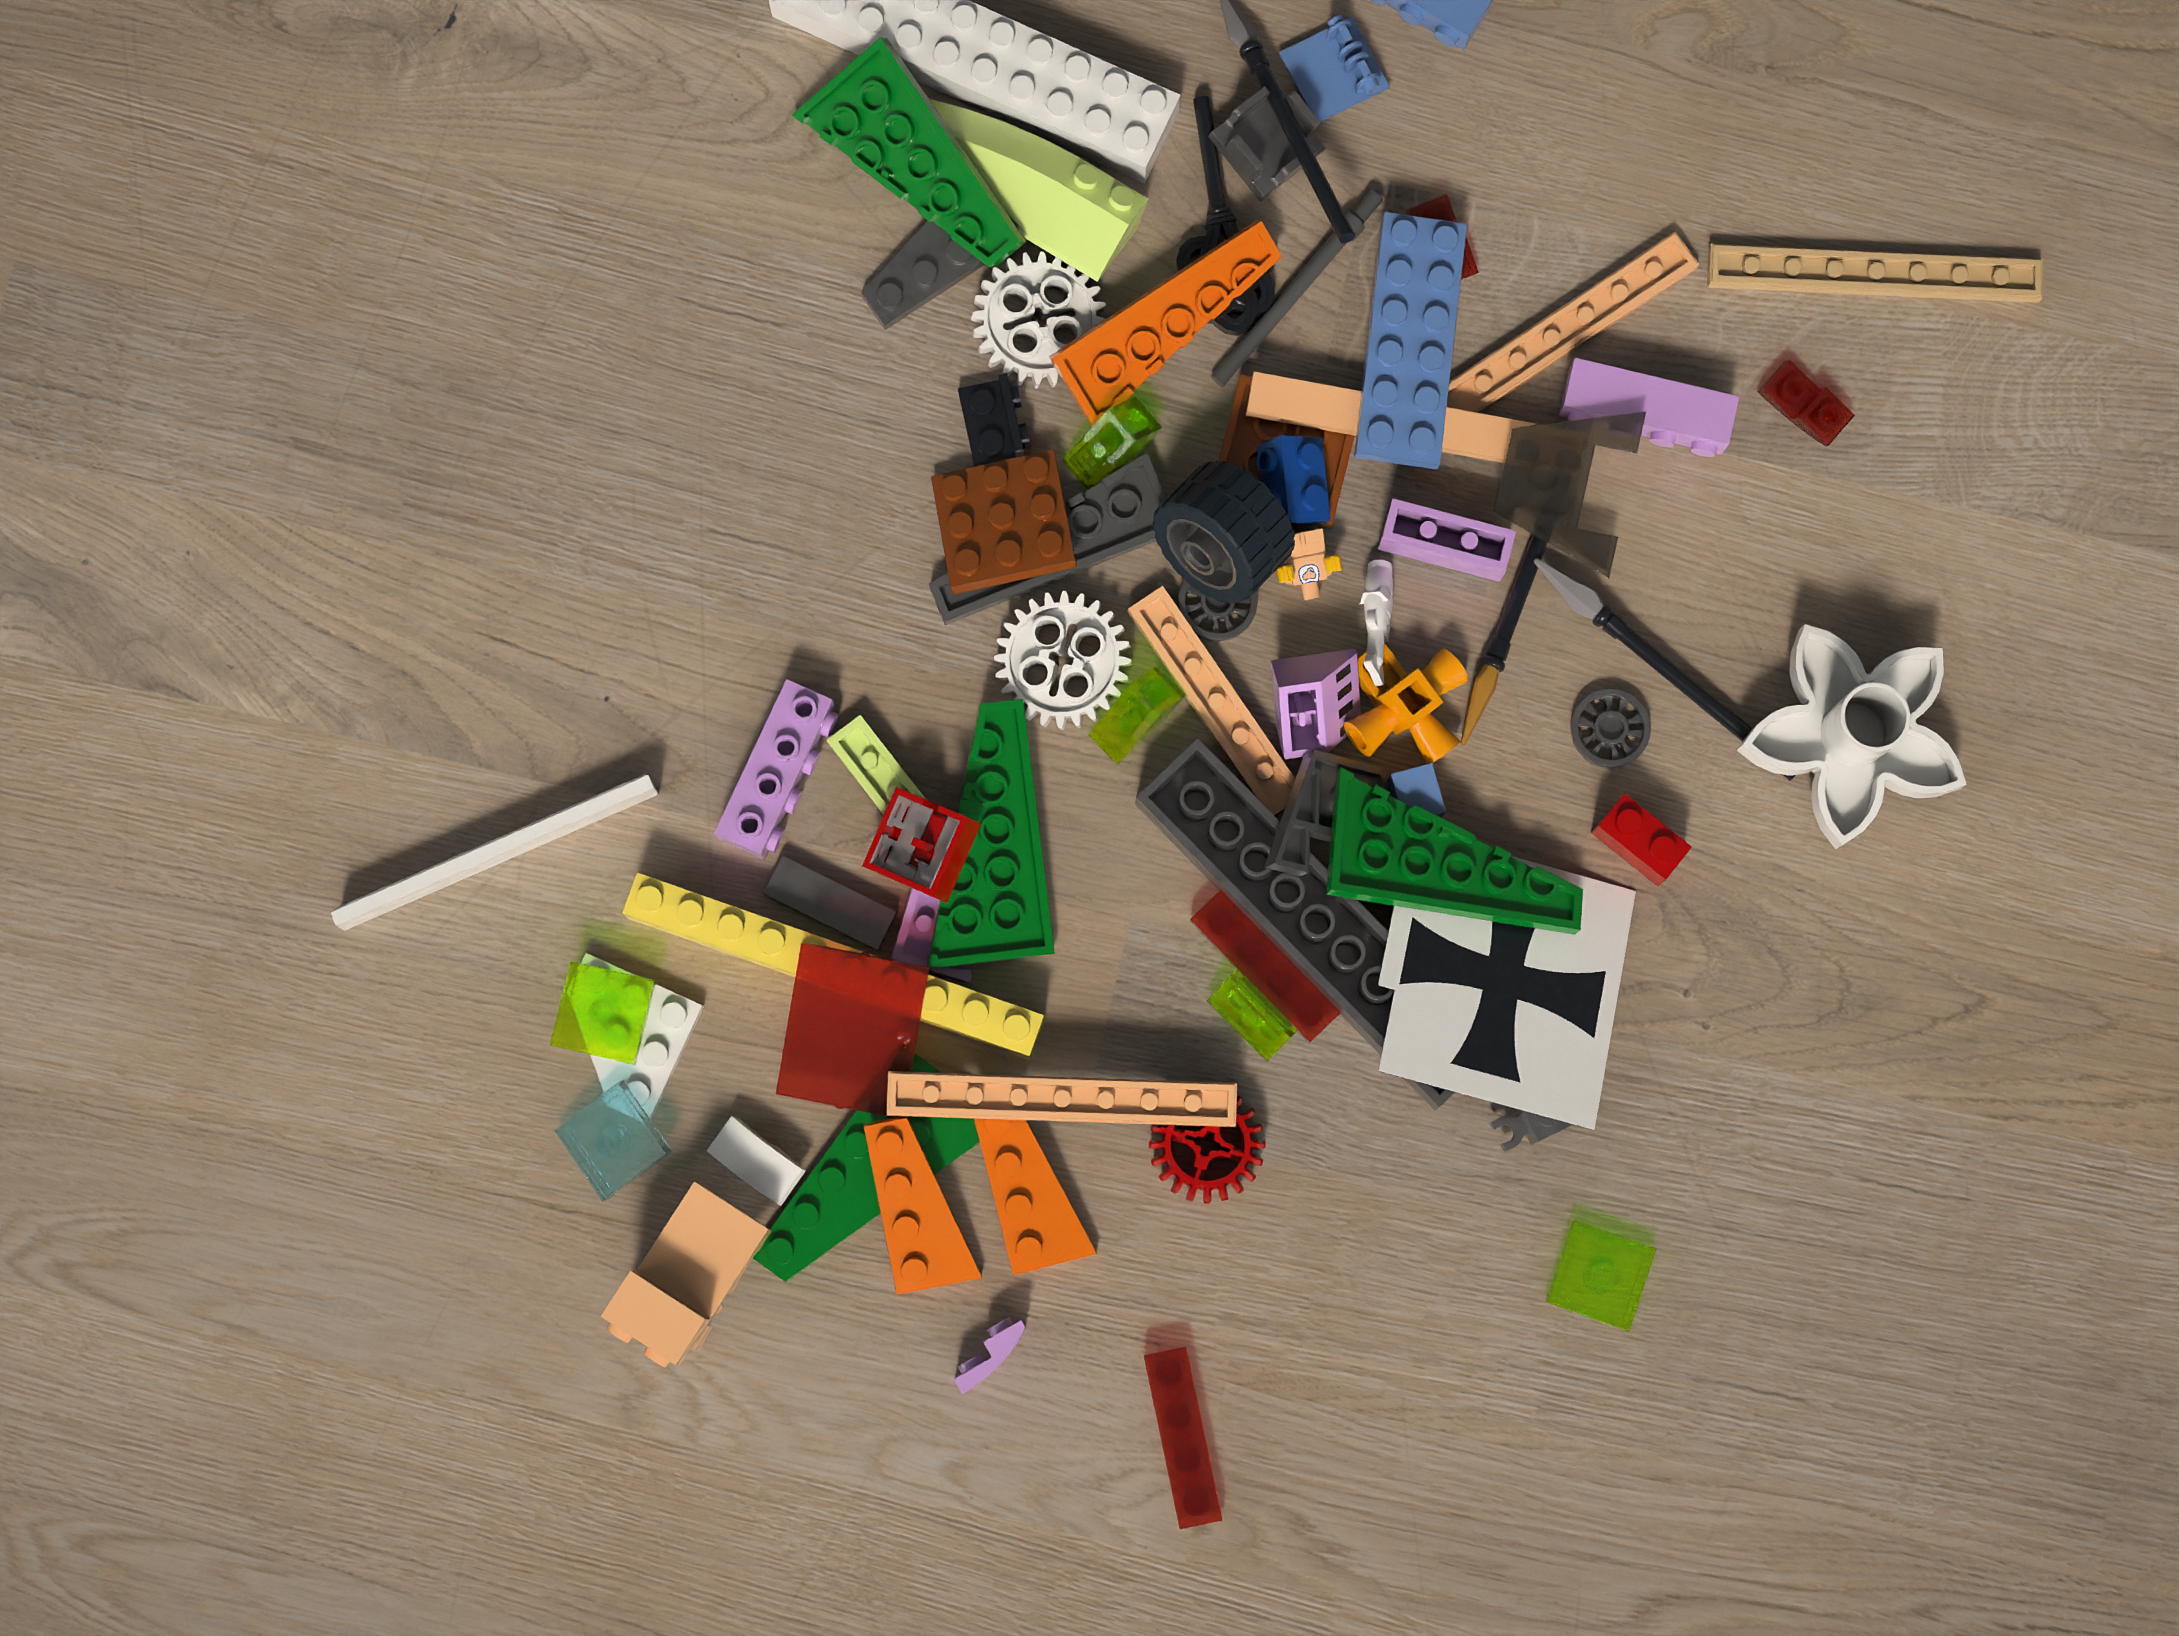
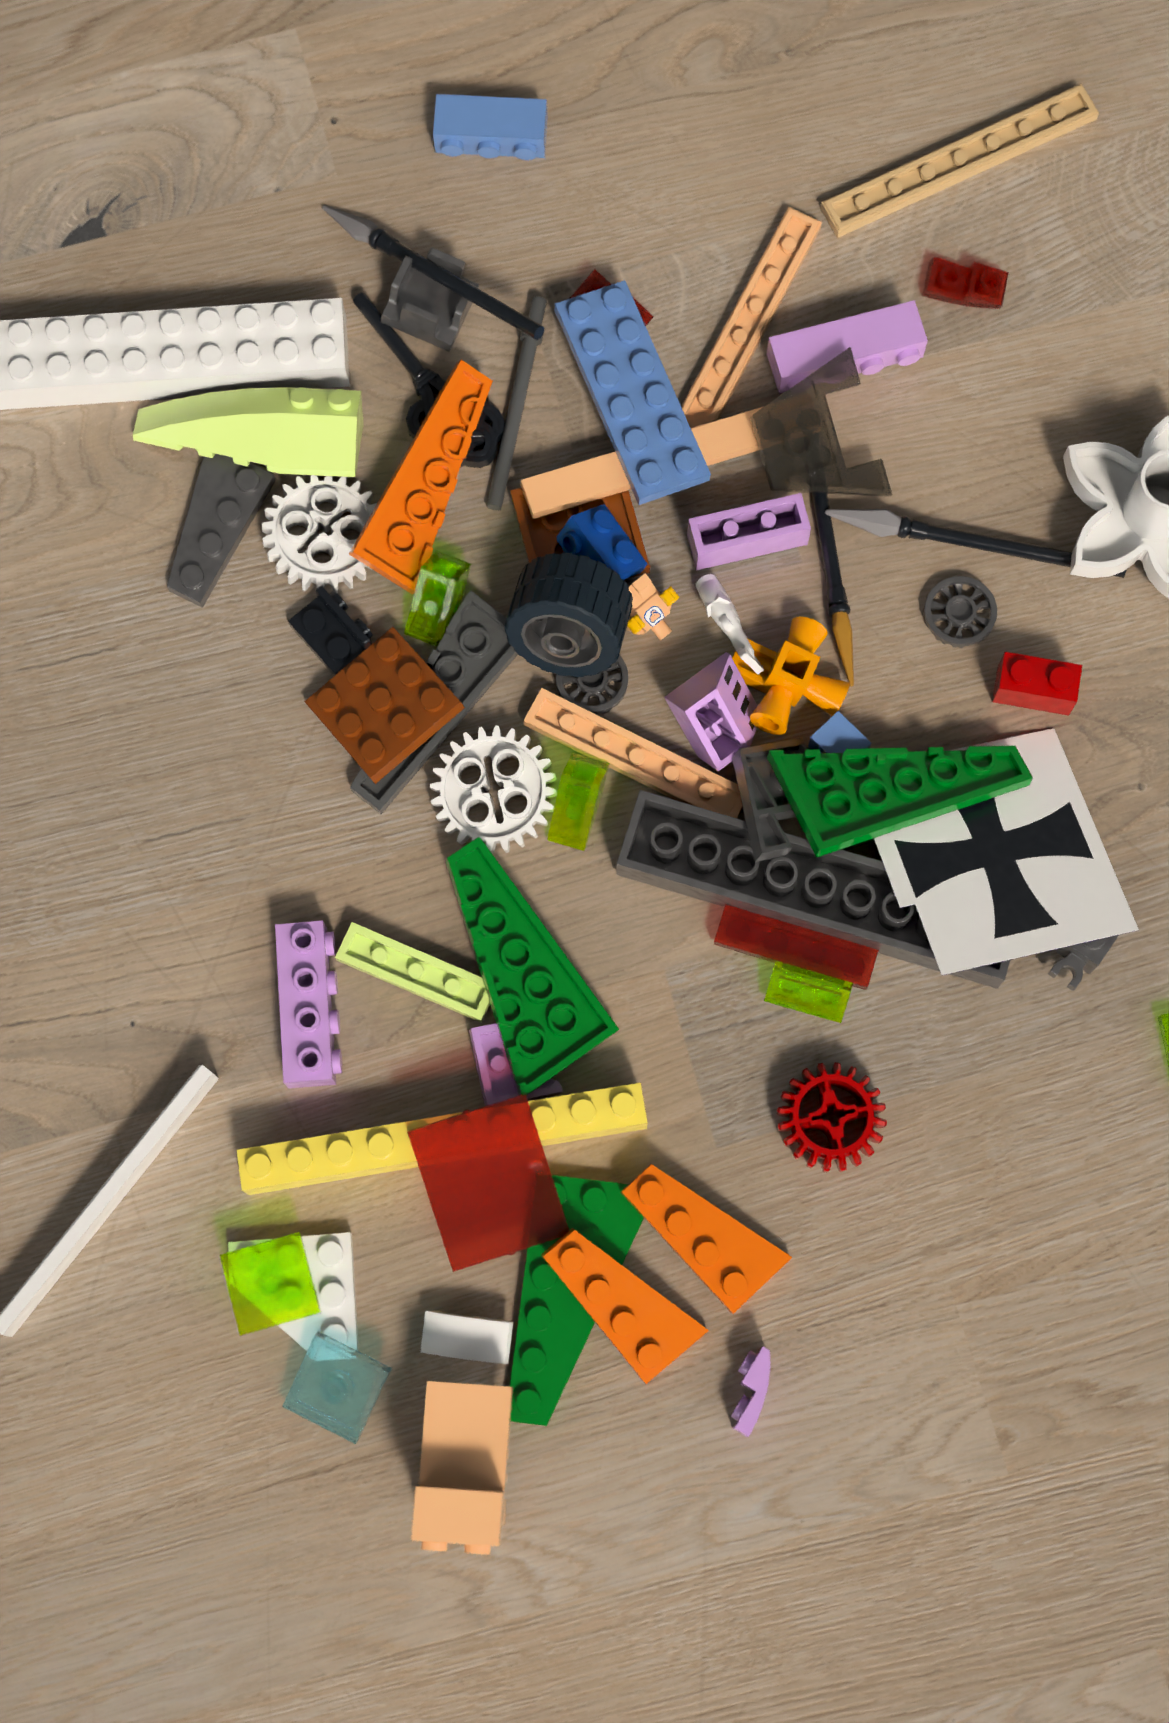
camera: 25 degrees left, 5 degrees down
(830, 903) = (410, 1090): flat silver tile -> none
(900, 140) = (132, 448): green wing -> none
(921, 845) = (462, 999): piece -> none
(1061, 1099) = (693, 1143): light nougat tile -> none
(1182, 1438) = (949, 1371): clear red plate -> none
(1334, 69) = (451, 220): medium blue hinge -> none

